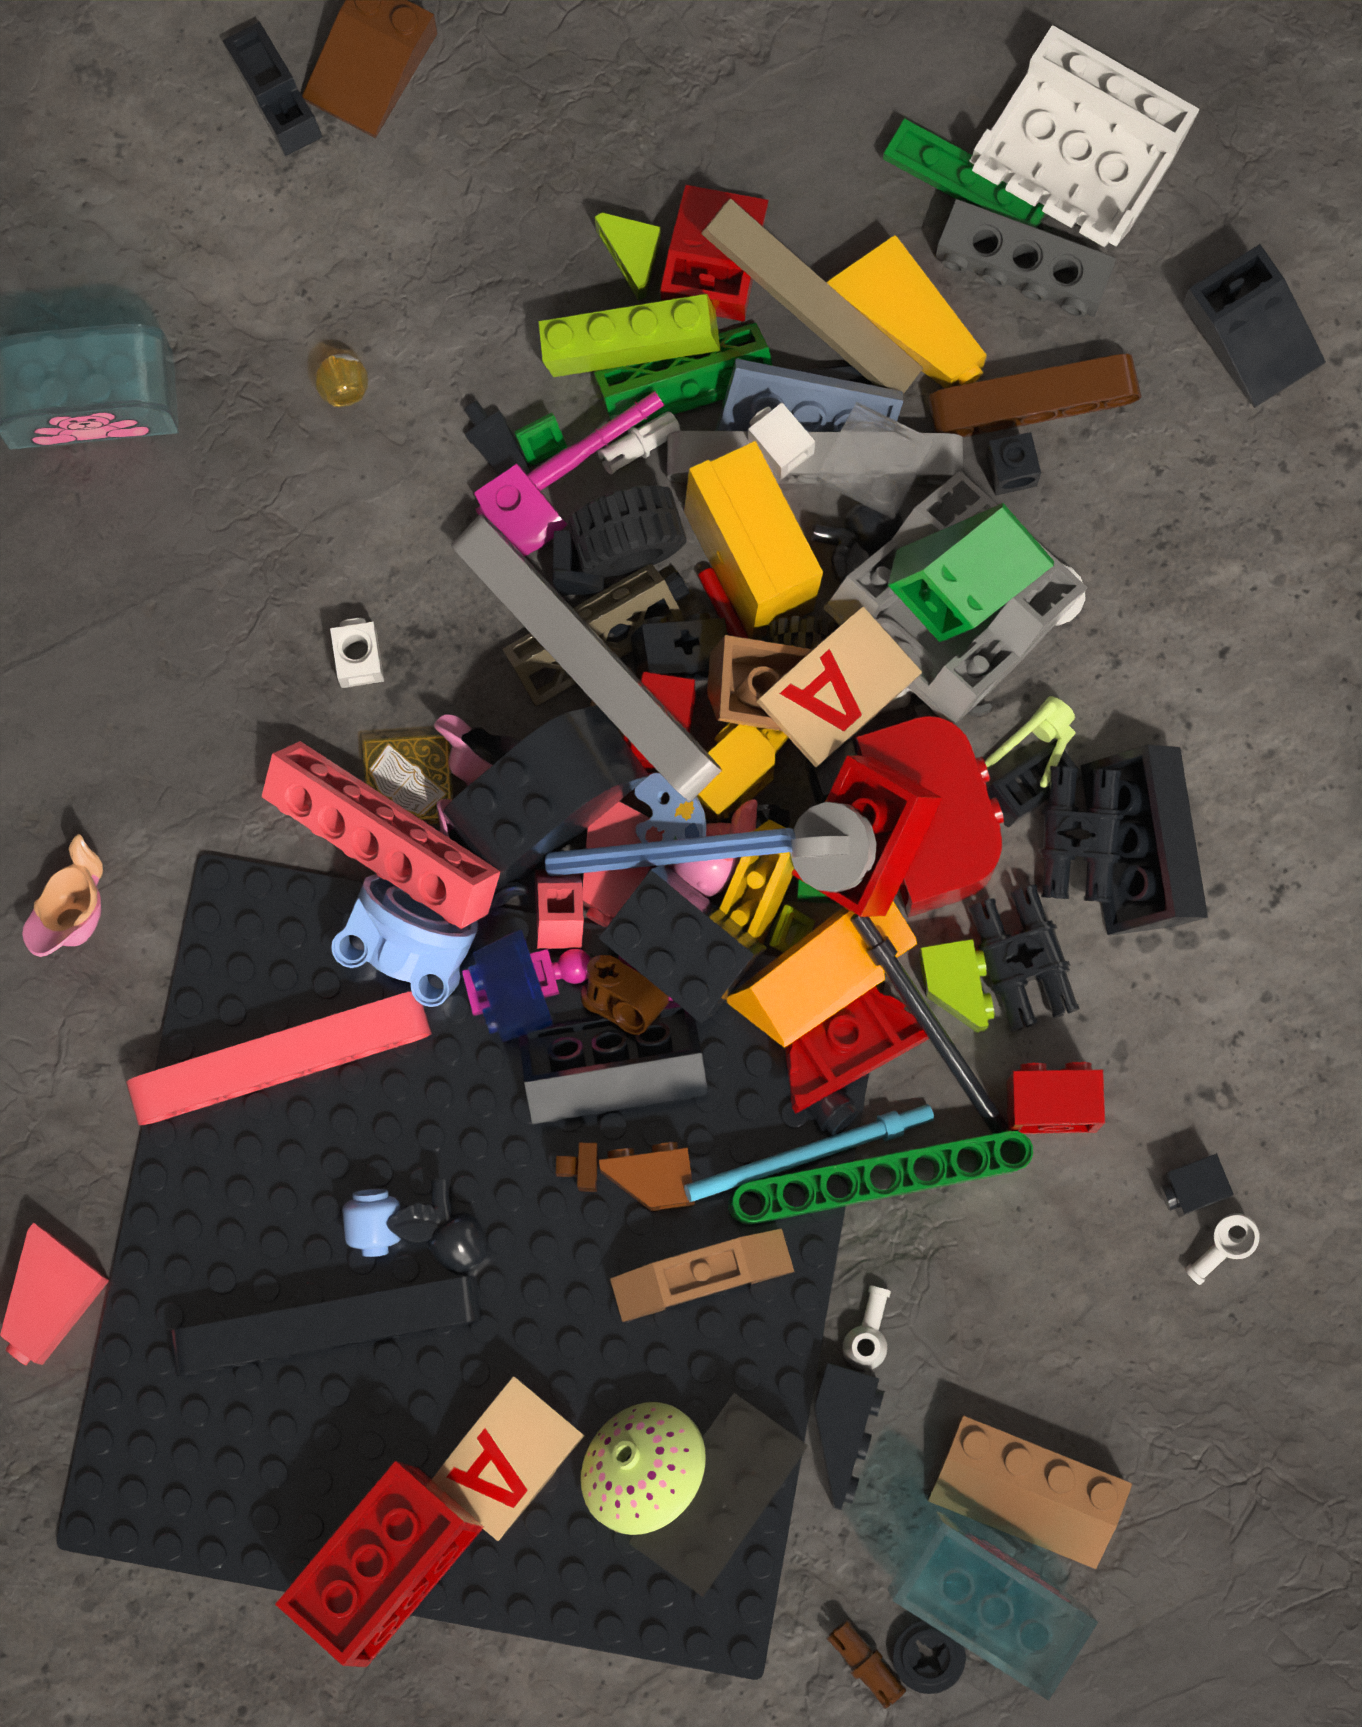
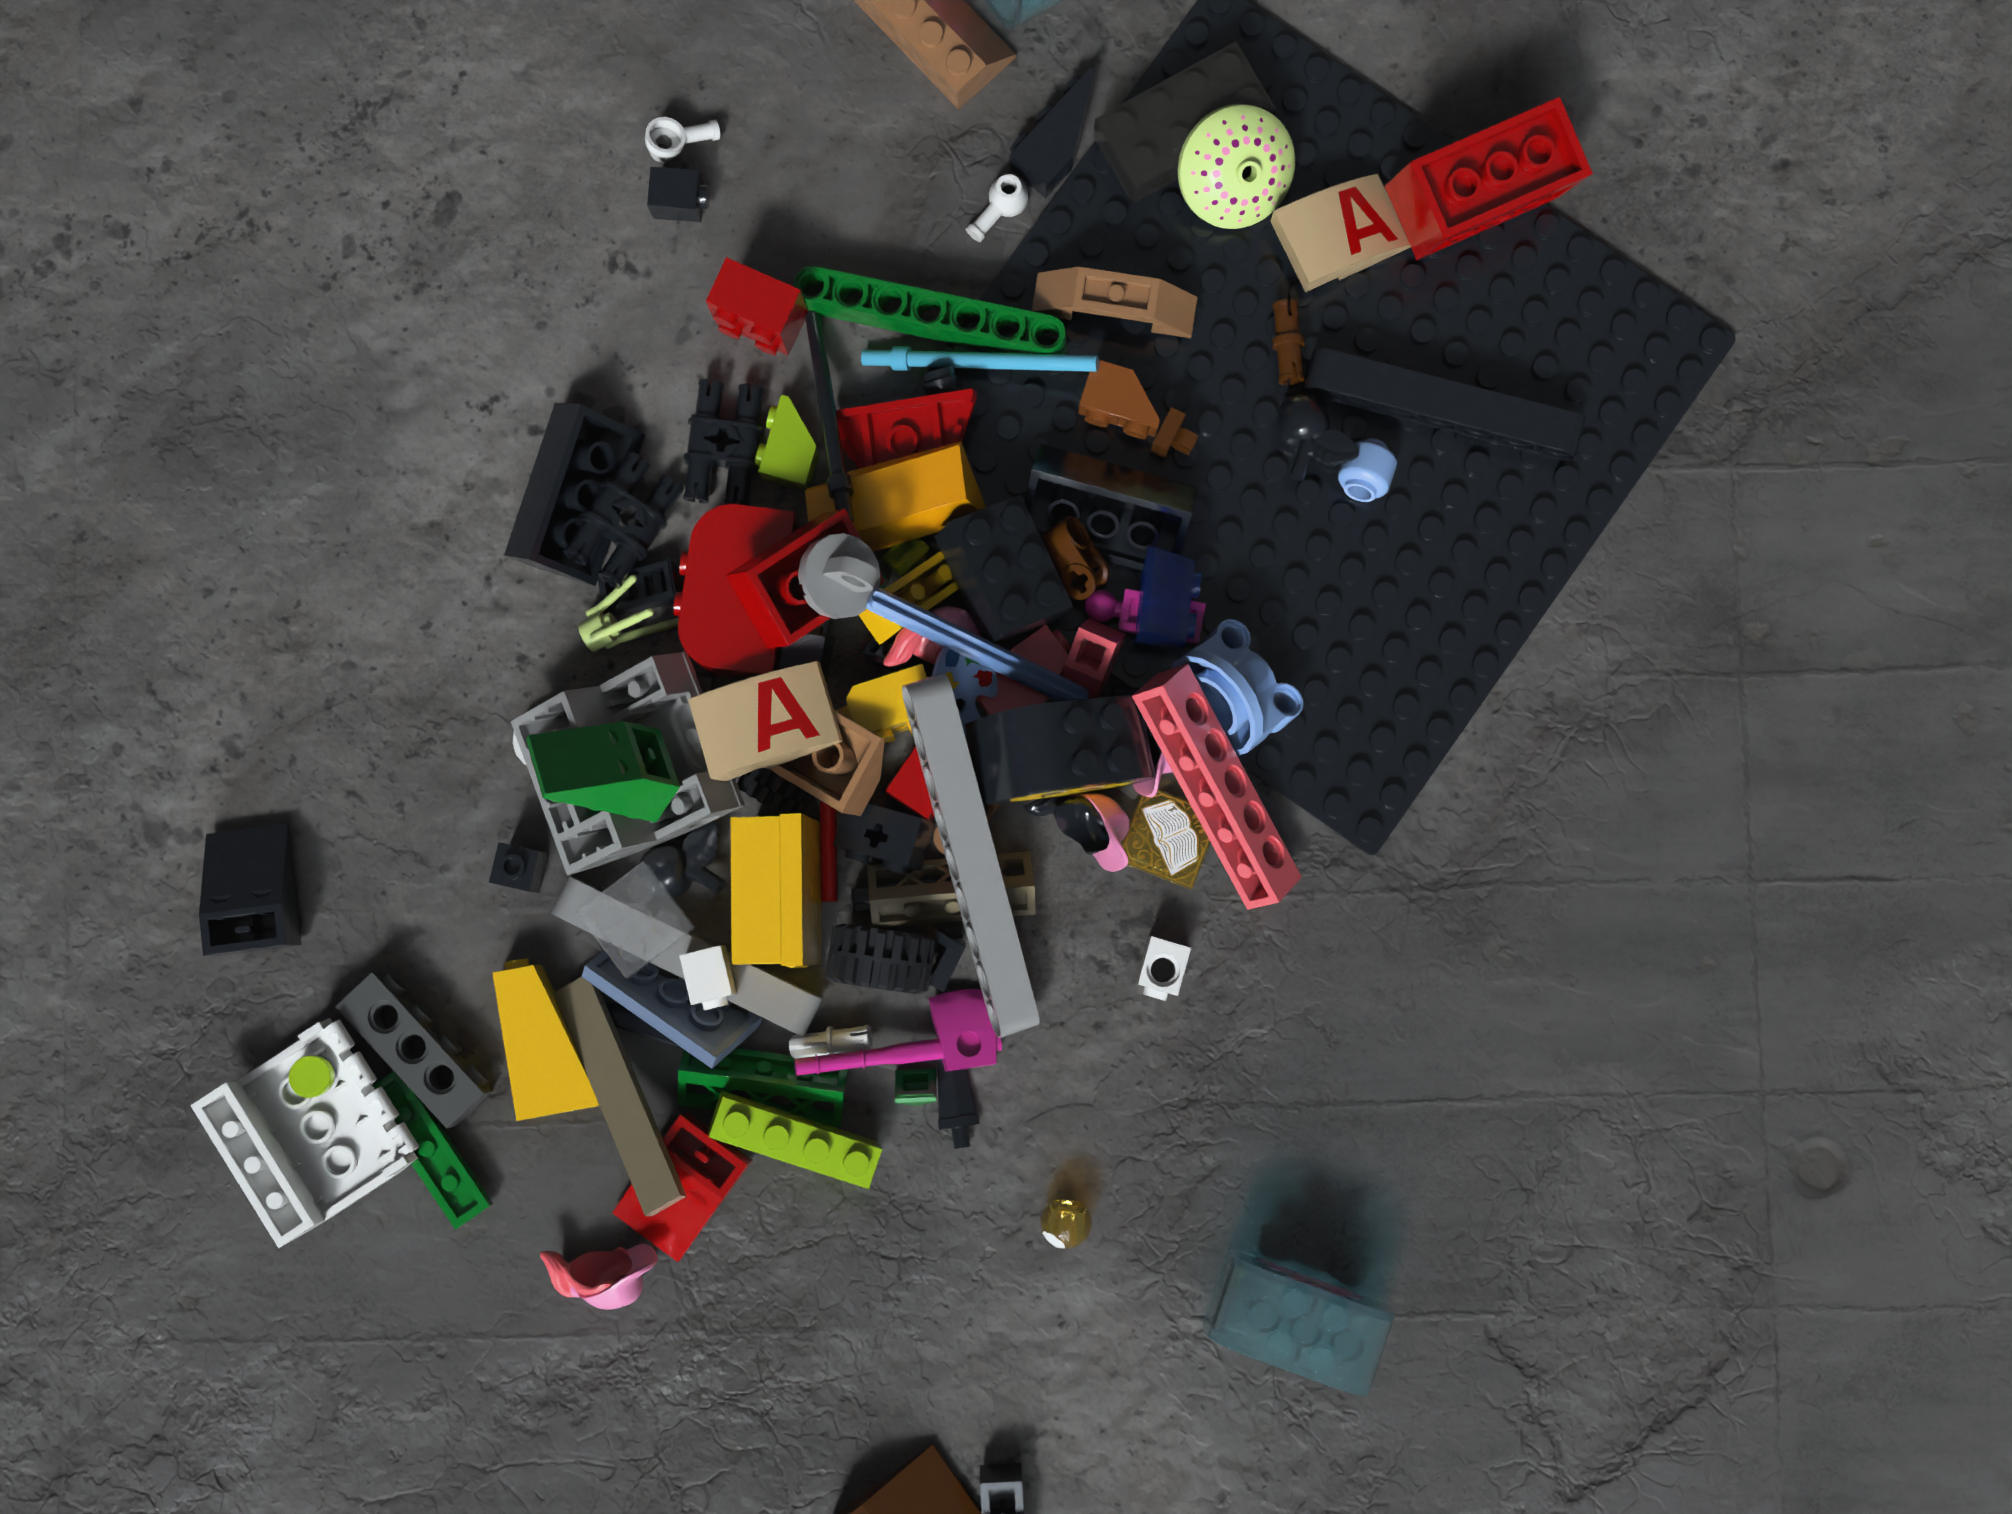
camera: 155 degrees left, 5 degrees up
(47, 1296) = (1661, 539): coral slope -> none
(68, 905) = (1511, 857): light nougat hair -> none
(277, 1058) = (1386, 643): coral beam -> none
(509, 1318) = (1288, 342): none -> reddish brown pin
(632, 247) = (754, 1224): lime slope -> none
(748, 139) = (602, 1277): none -> coral hair
(1035, 396) = (470, 920): reddish brown beam -> none
(1106, 188) = (311, 1076): none -> lime tile

